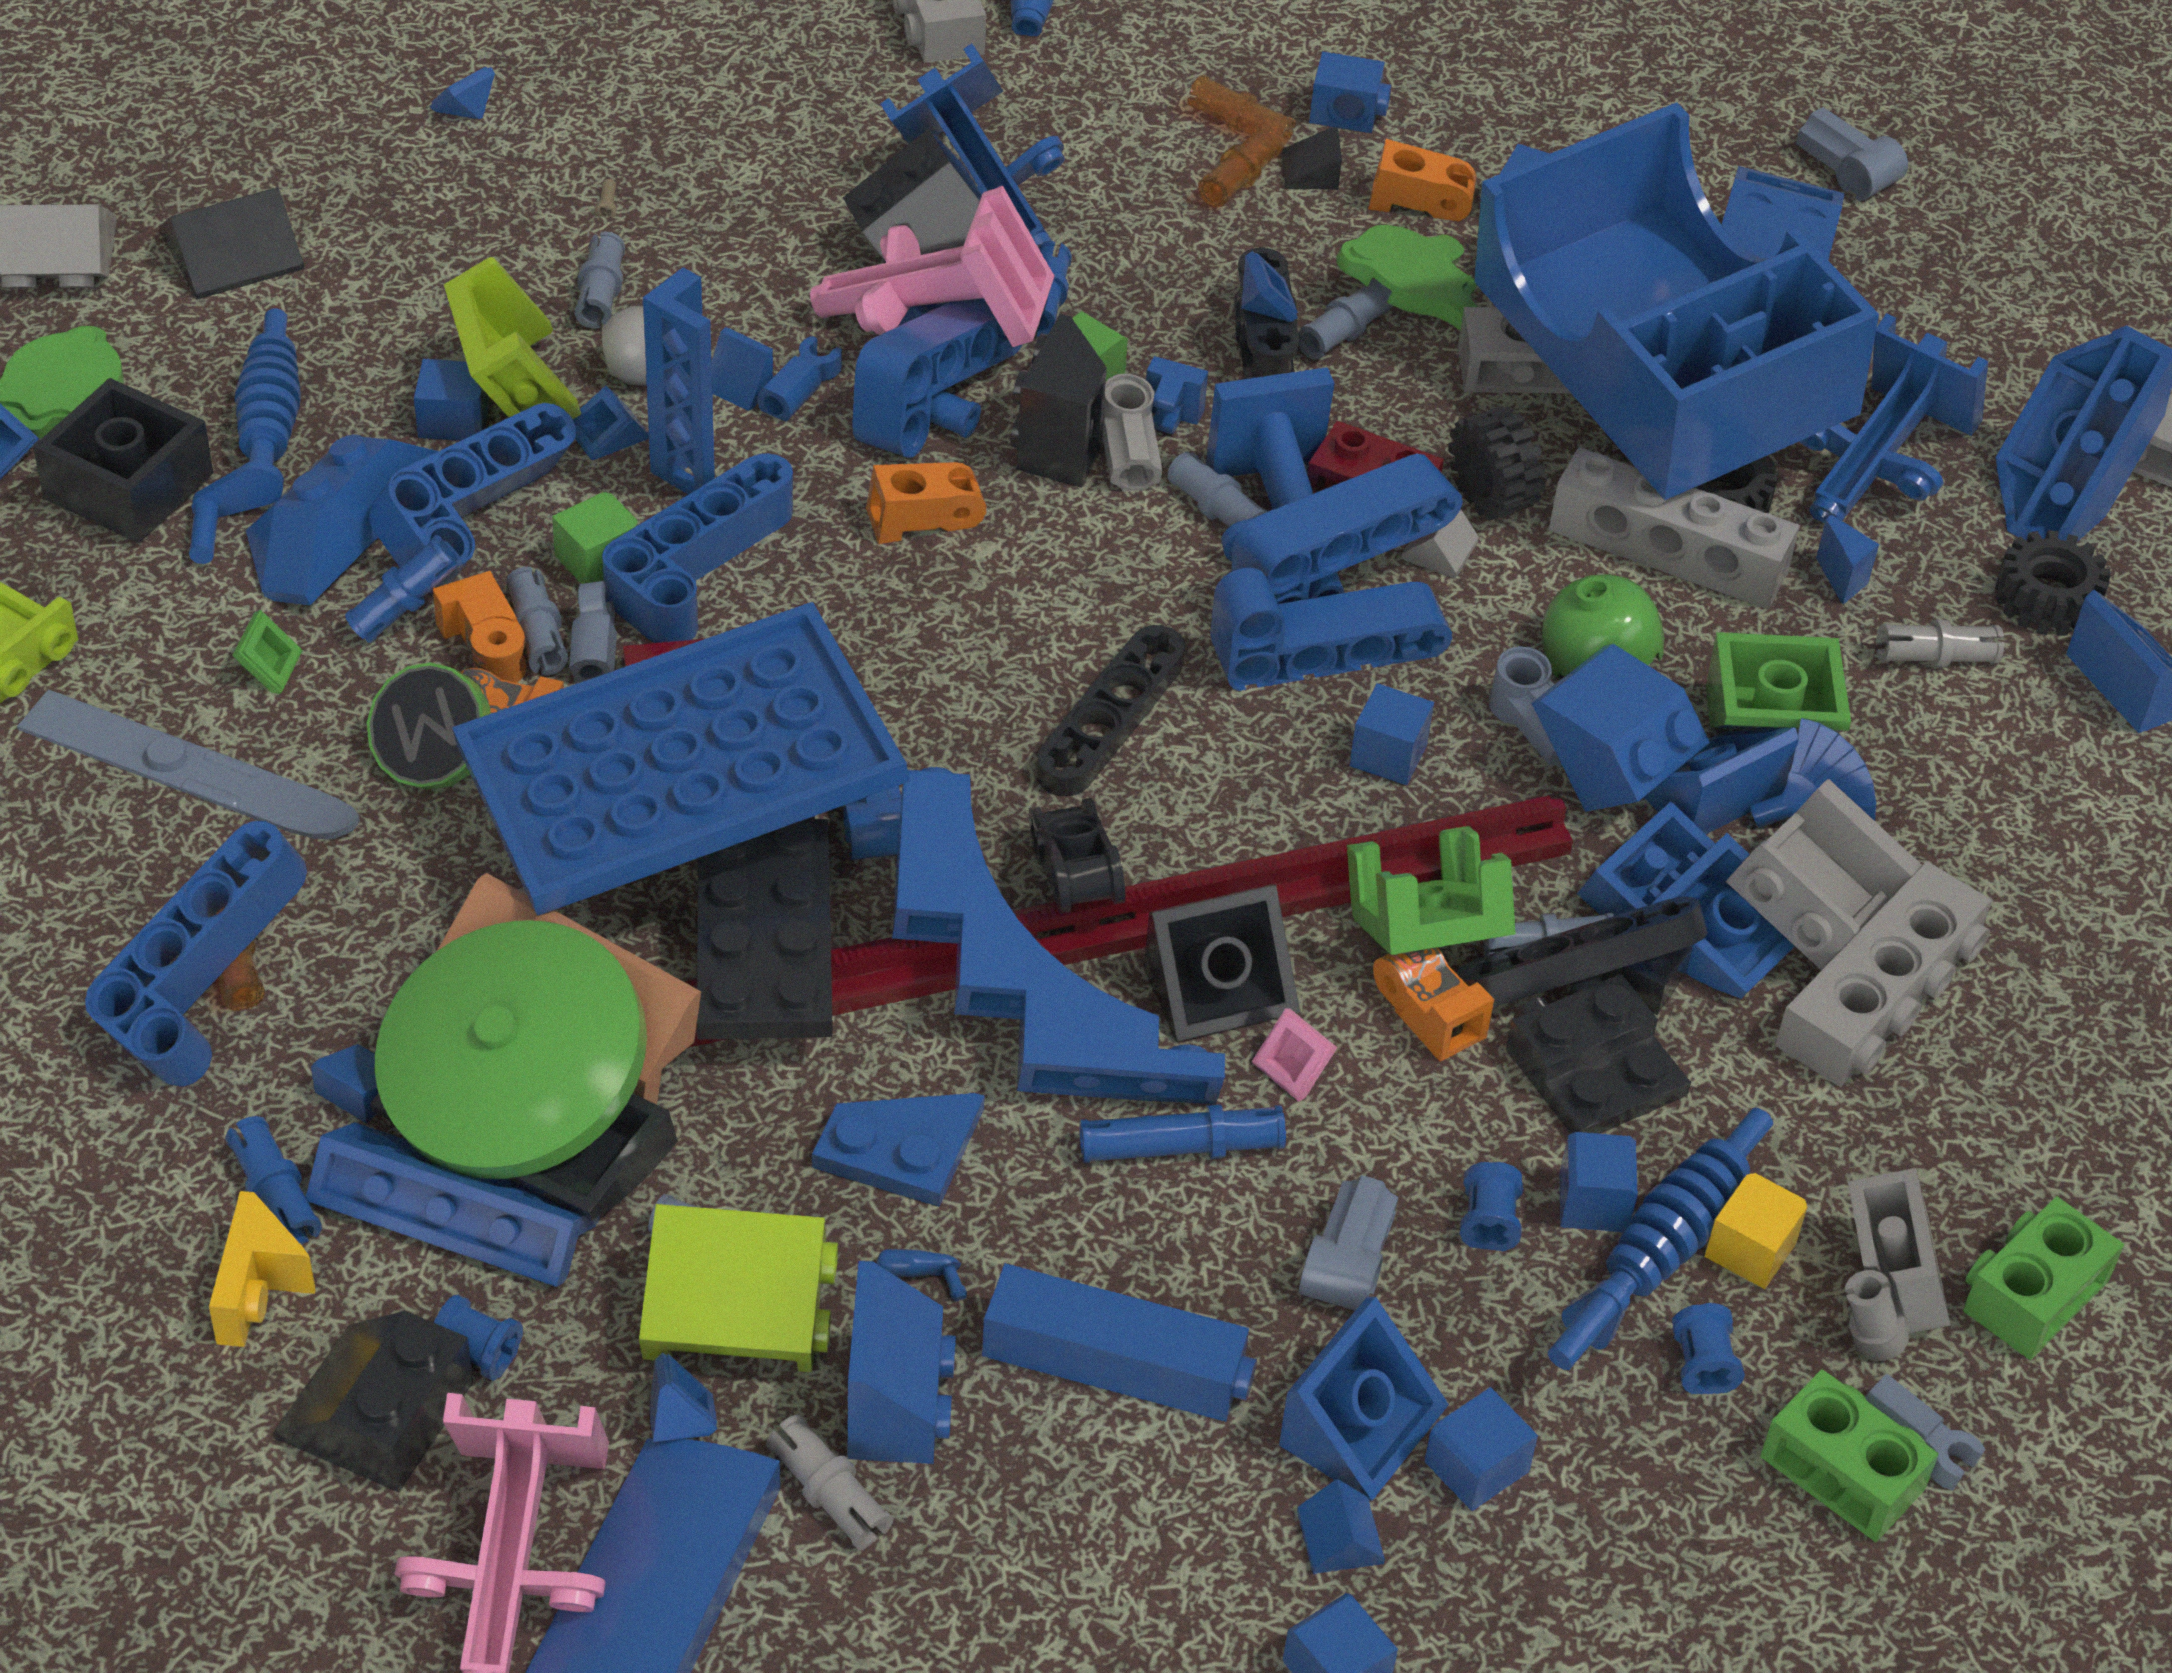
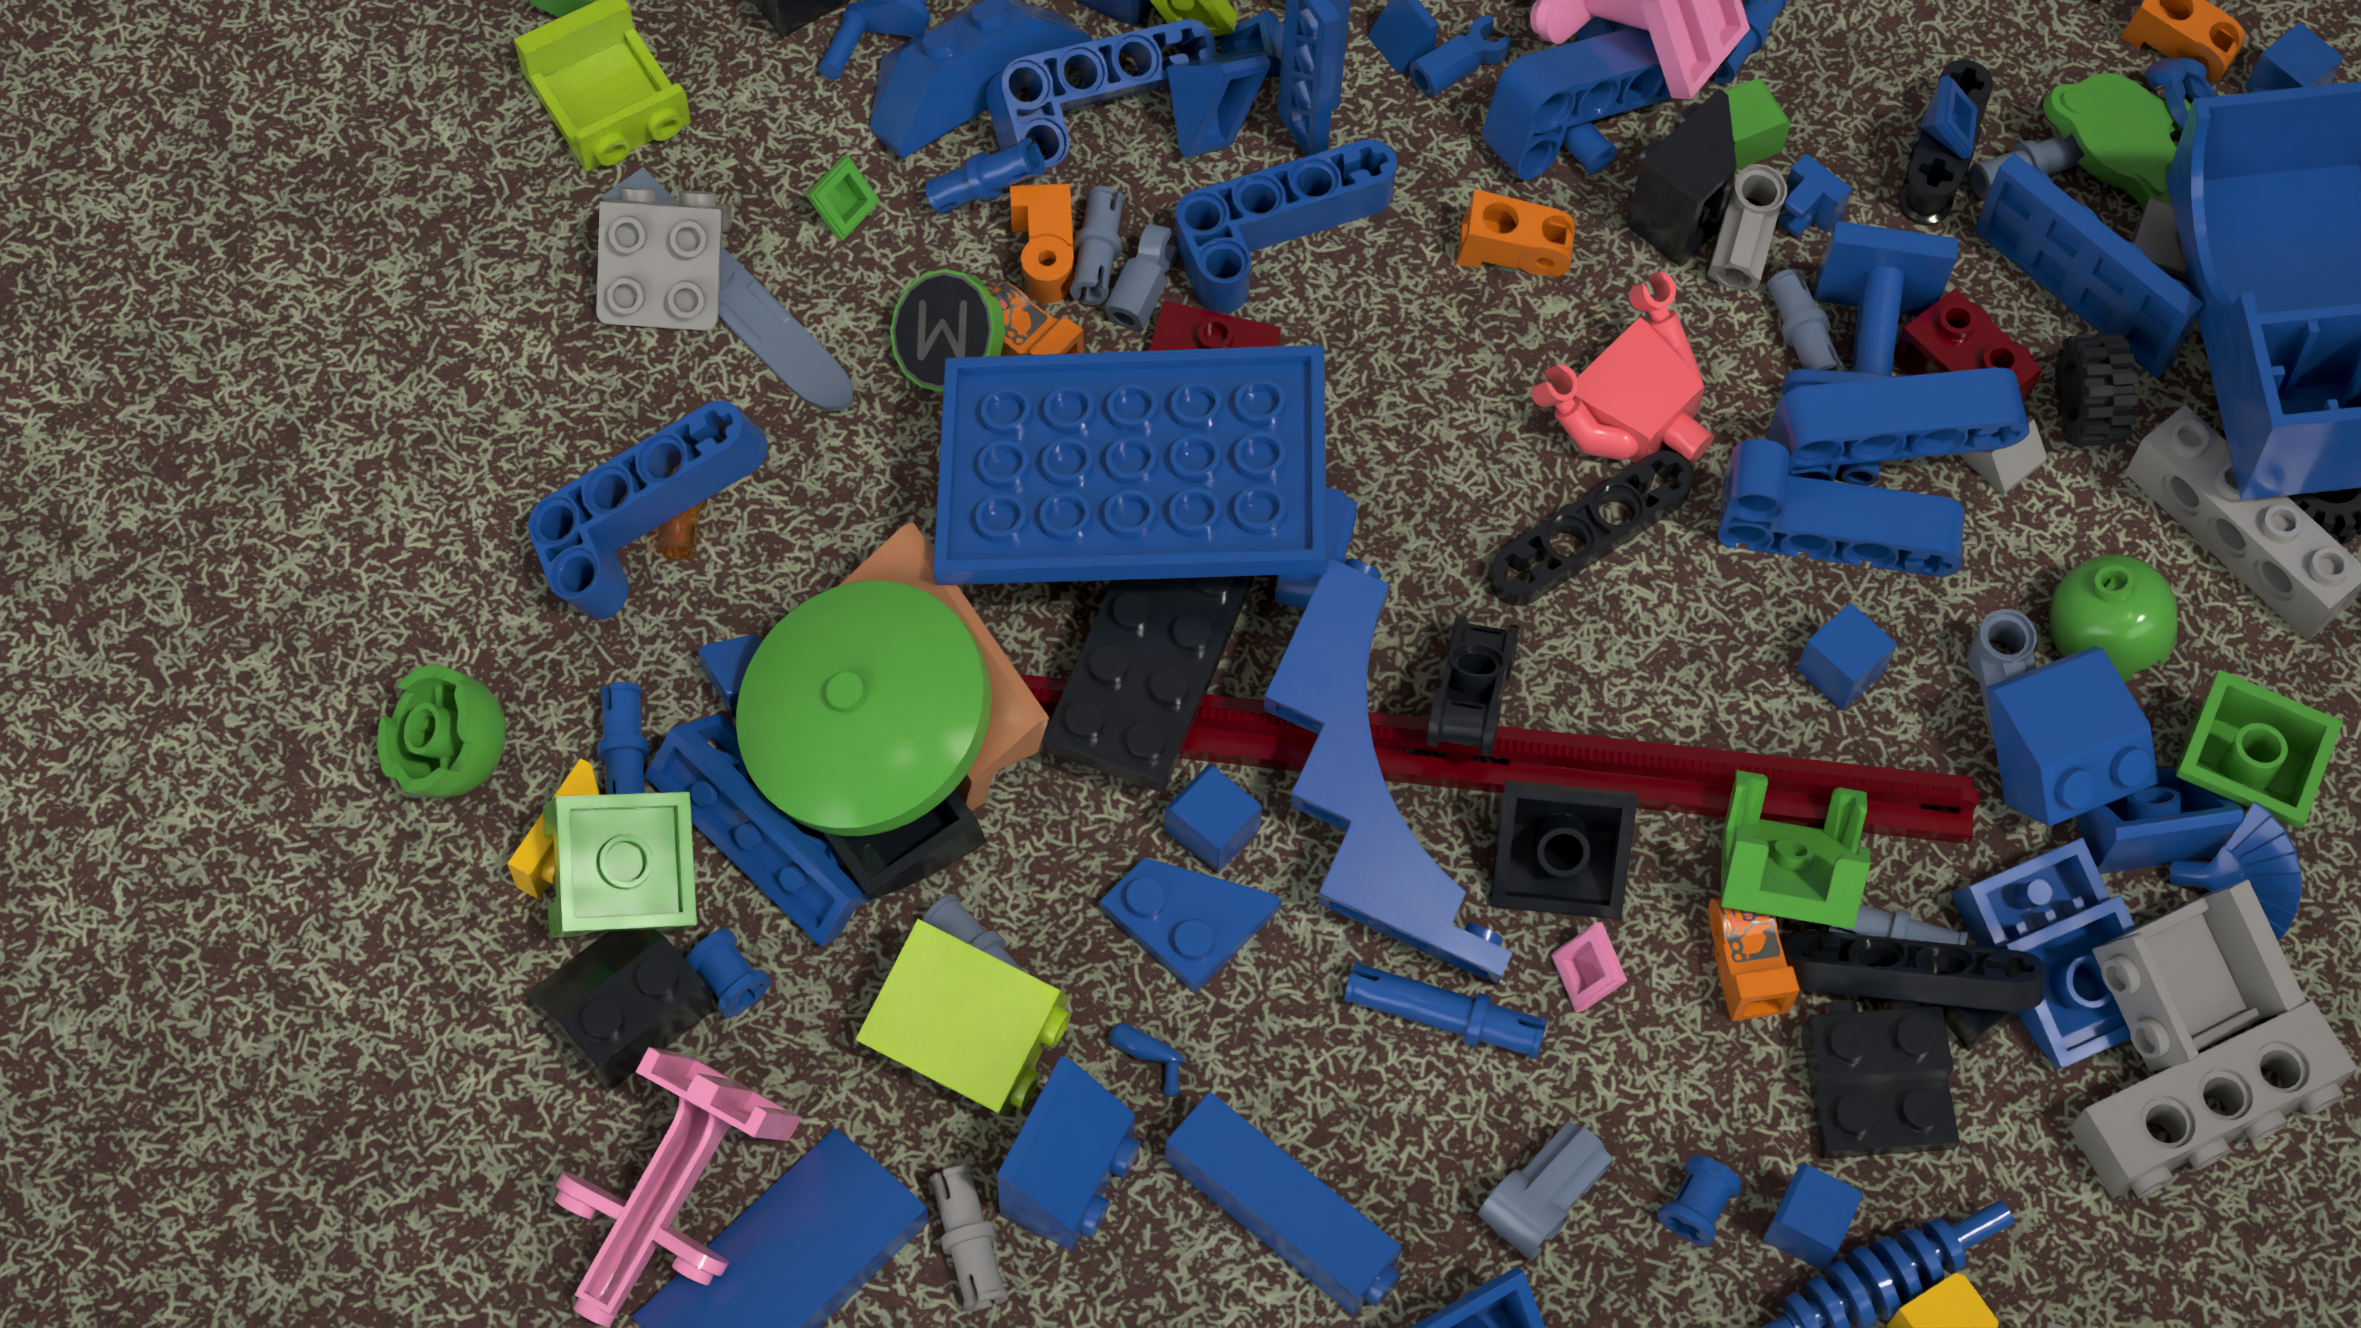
camera: 25 degrees right, 15 degrees up
(83, 1217) = (442, 733): none -> bright green cylinder
(110, 754) = (660, 259): none -> light grey bracket
(330, 1260) = (621, 863): none -> panel
(586, 530) = (1183, 167): bright green piece -> none
(594, 455) = (1214, 98): none -> blue slope
(679, 1403) = (872, 1110): blue slope -> none
(886, 1047) = (1213, 818): none -> blue piece
(1099, 582) = (1637, 390): none -> coral torso
(1435, 366) = (2087, 264): none -> blue plate
(1446, 224) = (2173, 76): none -> blue piece

